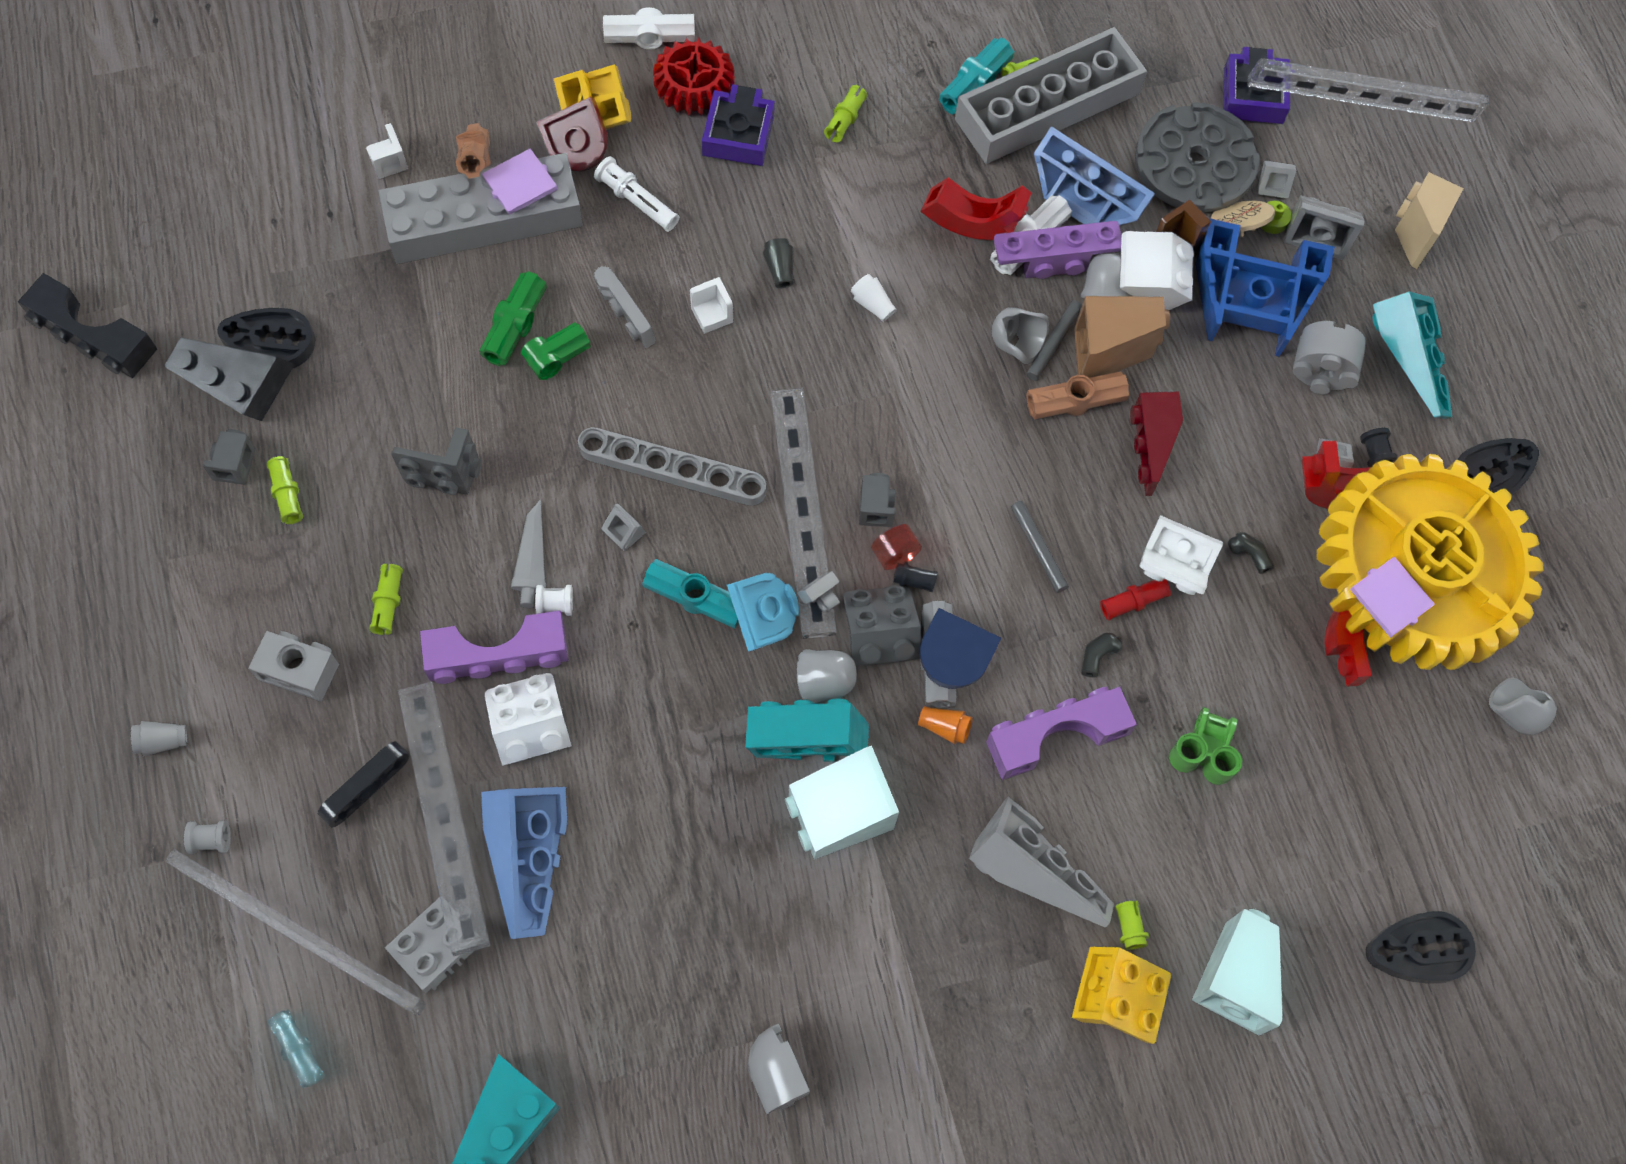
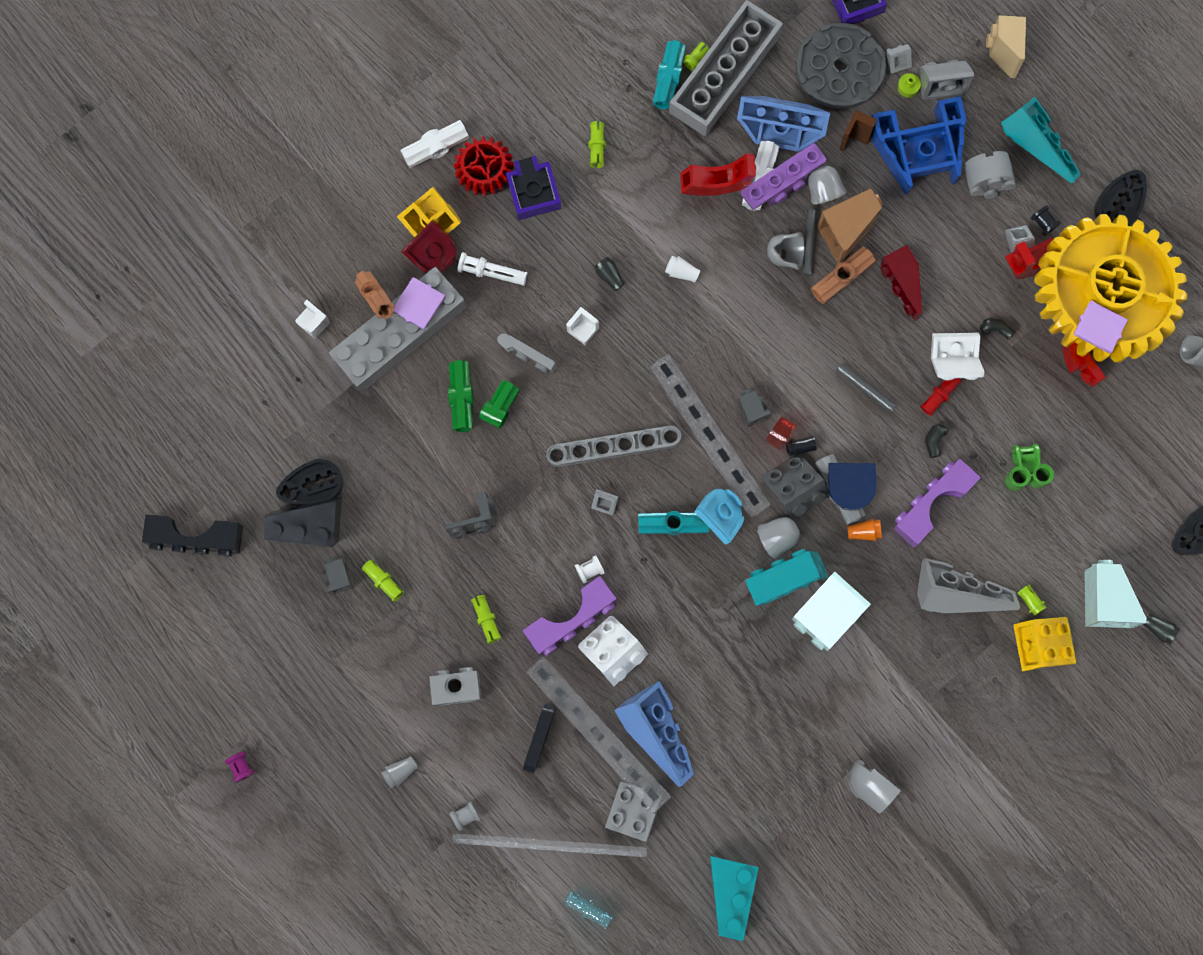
camera: 15 degrees left, 10 degrees up
(530, 561) = (560, 552): light grey bar -> none
(820, 591) = (749, 485): light grey tile -> none
(1157, 266) = (854, 164): white slope -> none
(1247, 214) = (890, 96): tan piece -> none
(1300, 1054) = (1161, 628): none -> pearl dark grey cone

